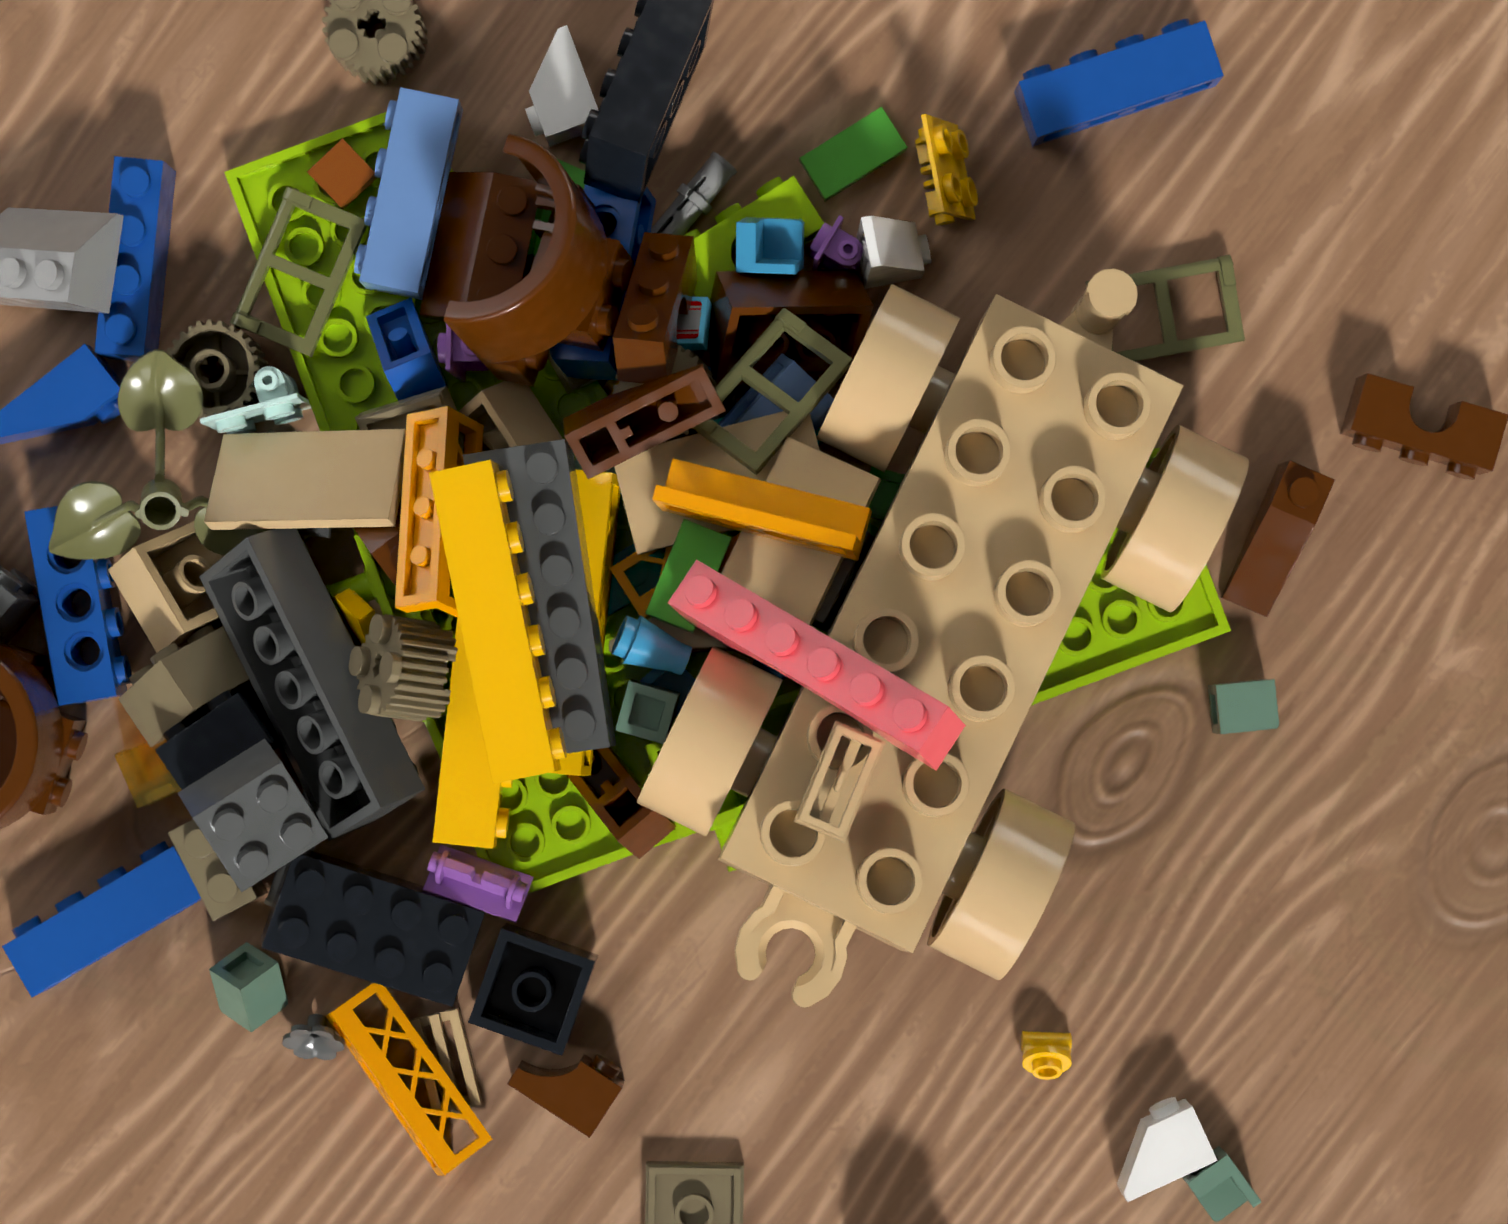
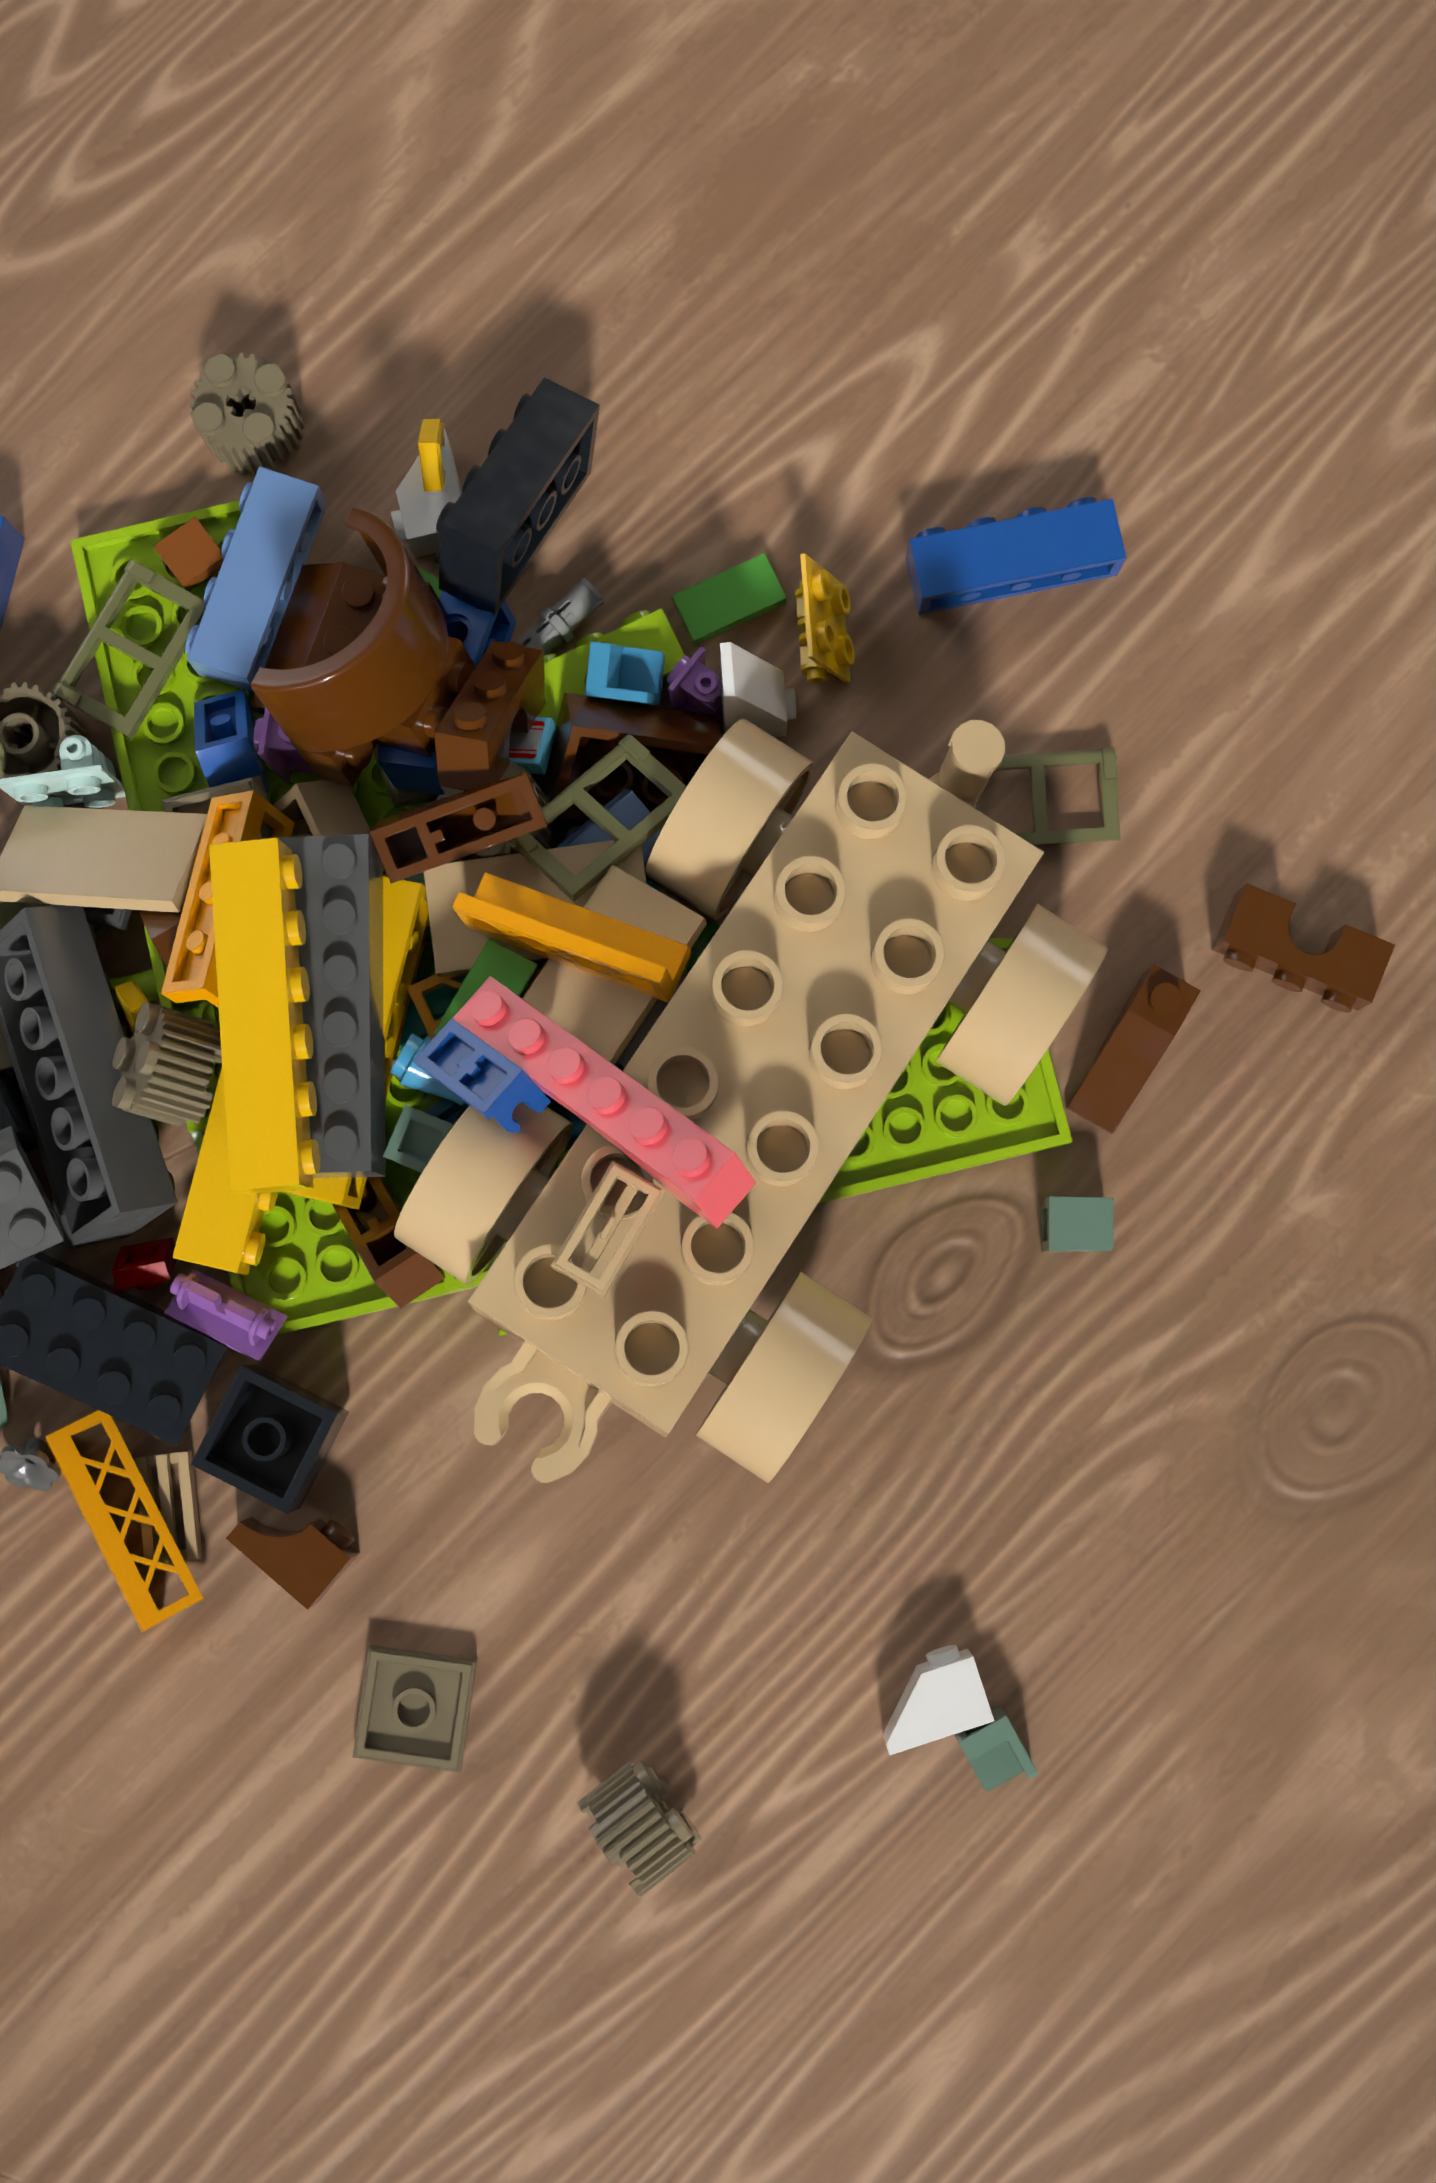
camera: 10 degrees right, 5 degrees down
(394, 844) = (144, 1264): none -> red plate
(560, 54) = (431, 461): none -> yellow tile
(700, 652) = (479, 1075): none -> blue hinge
(1046, 1053) = (821, 1579): yellow plate -> none

